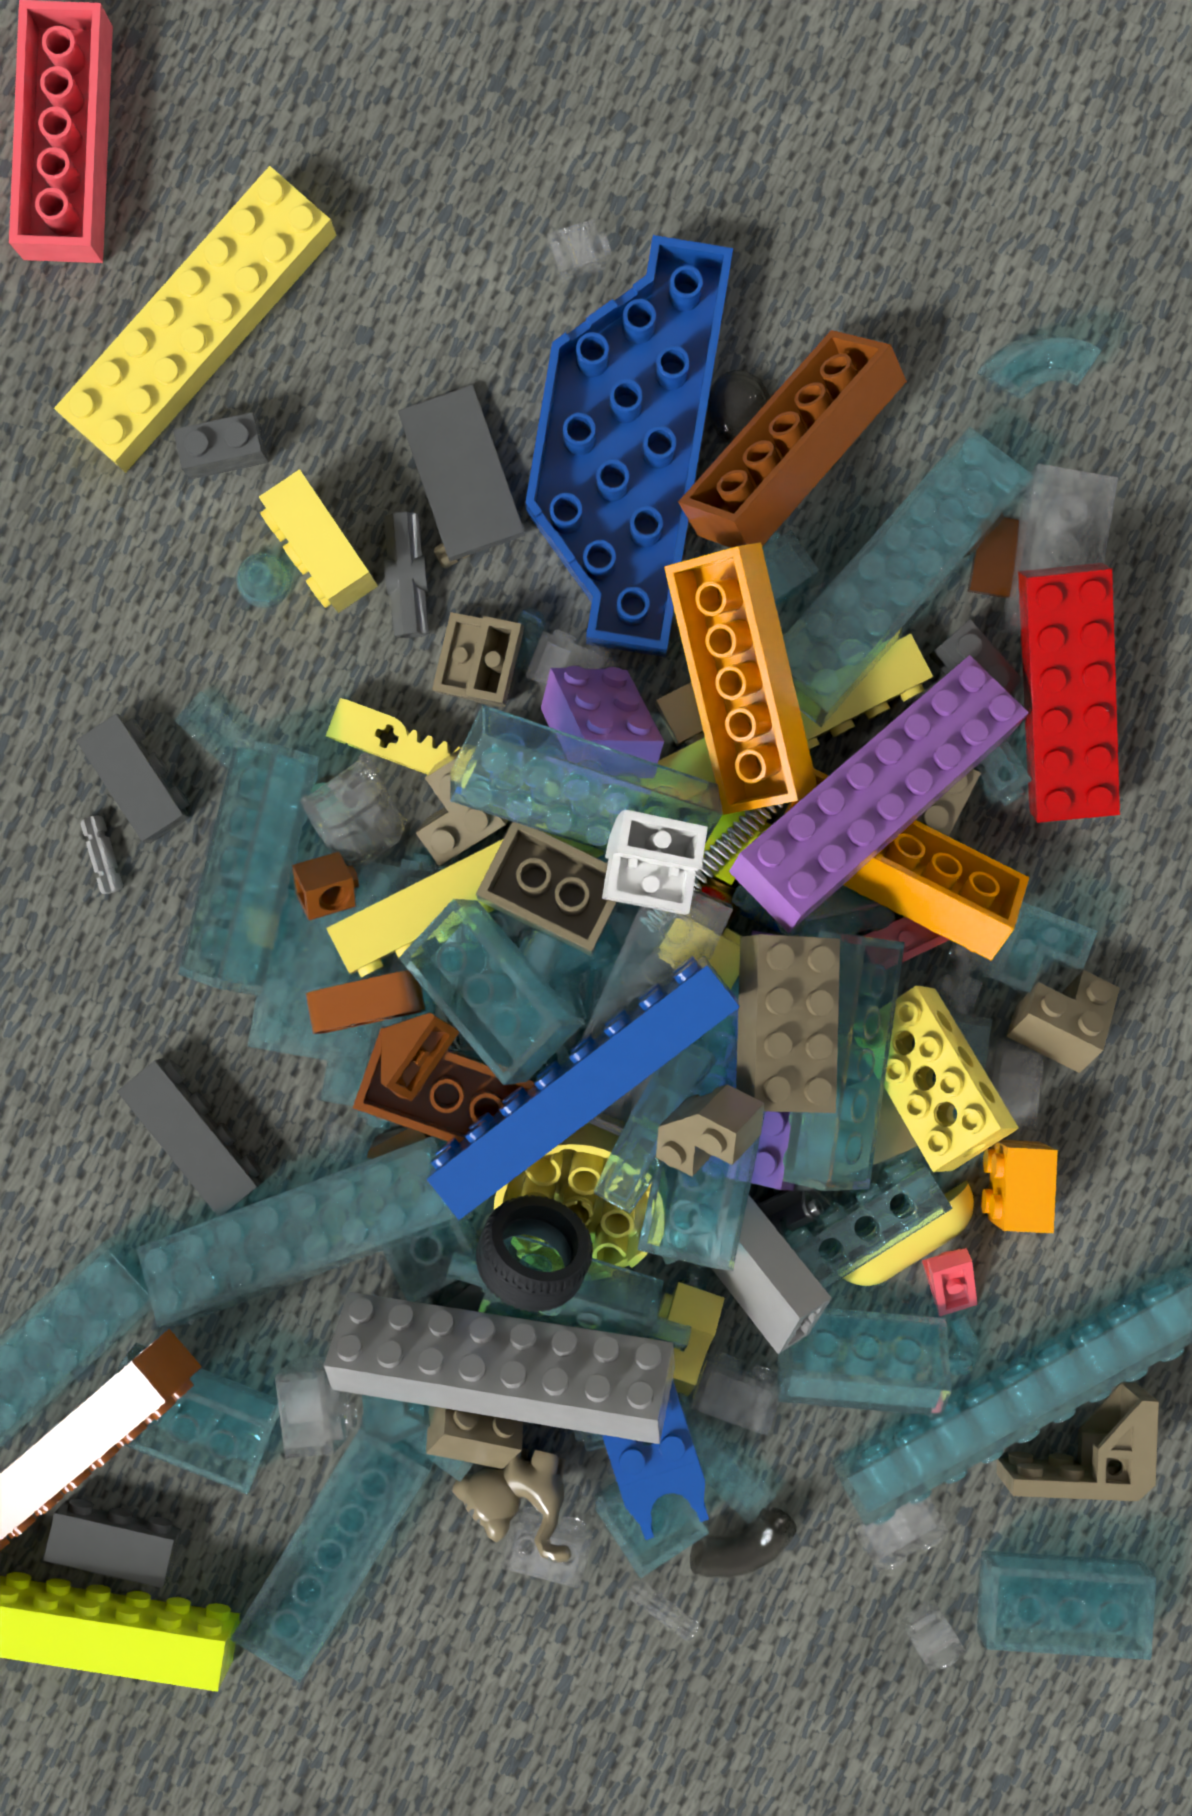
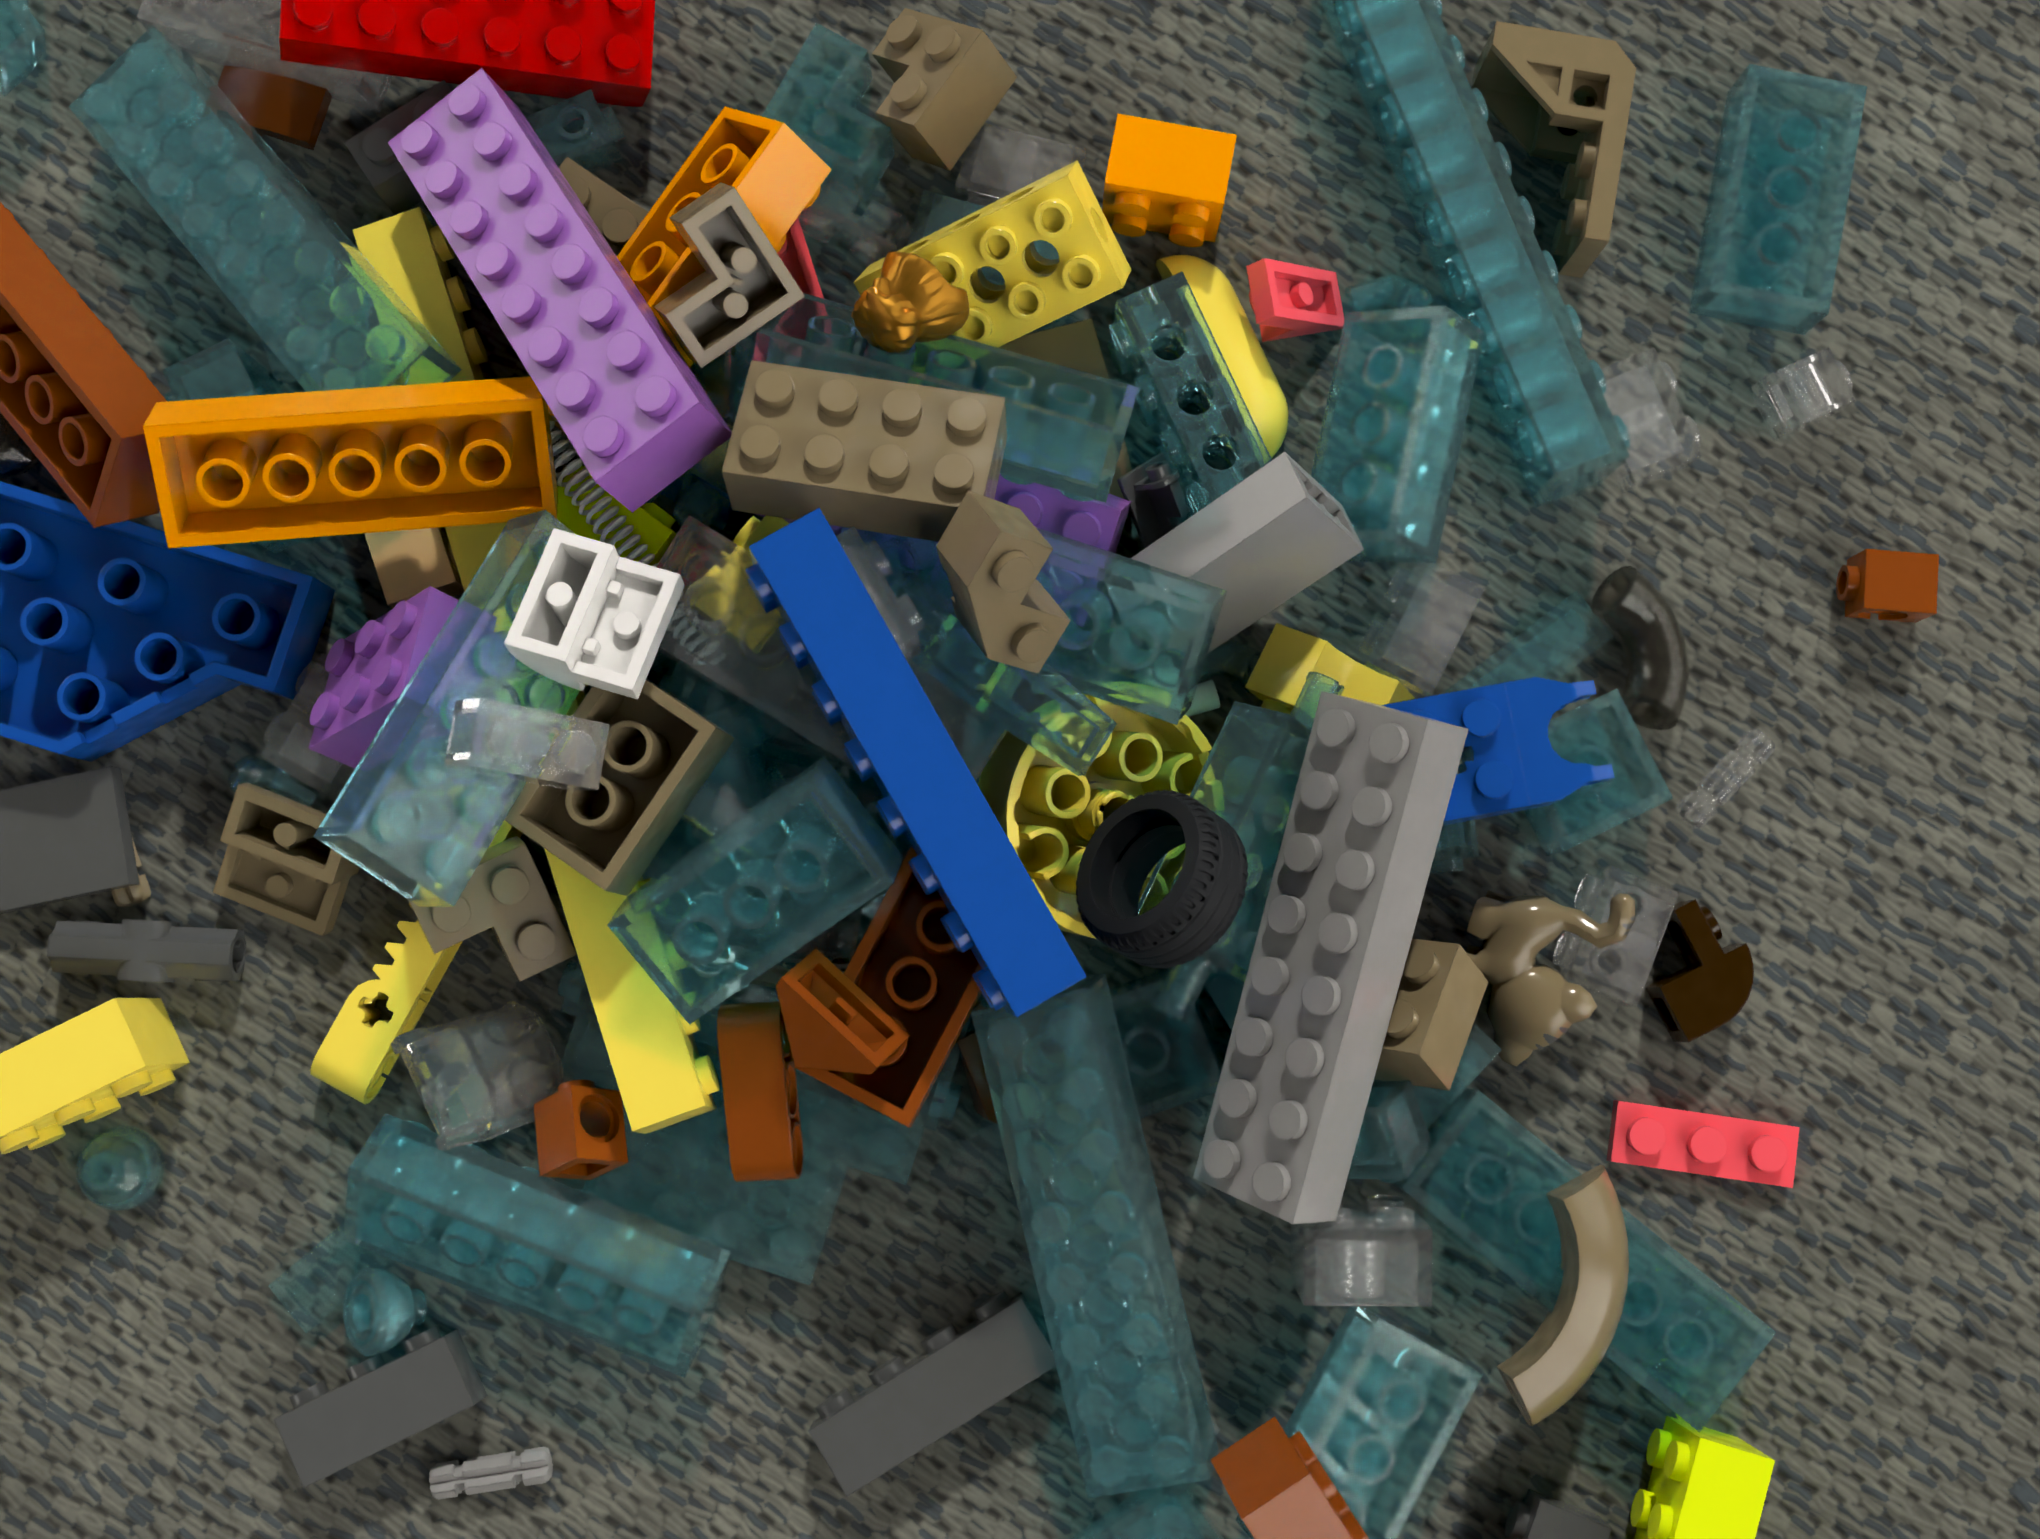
camera: 80 degrees left, 5 degrees down
(194, 768) = (380, 1310): none -> clear light blue brick
(300, 1559) = (1589, 1301): none -> dark tan brick
(418, 1619) = (1703, 1144): none -> coral plate
(522, 1614) = (1711, 985): none -> dark brown brick
(559, 835) = (526, 744): none -> clear brick
(685, 1060) = (873, 568): none -> clear plate
(808, 1707) = (1889, 584): none -> dark orange brick
(894, 916) = (741, 282): none -> dark tan brick
(897, 1032) = (909, 305): none -> pearl gold hair

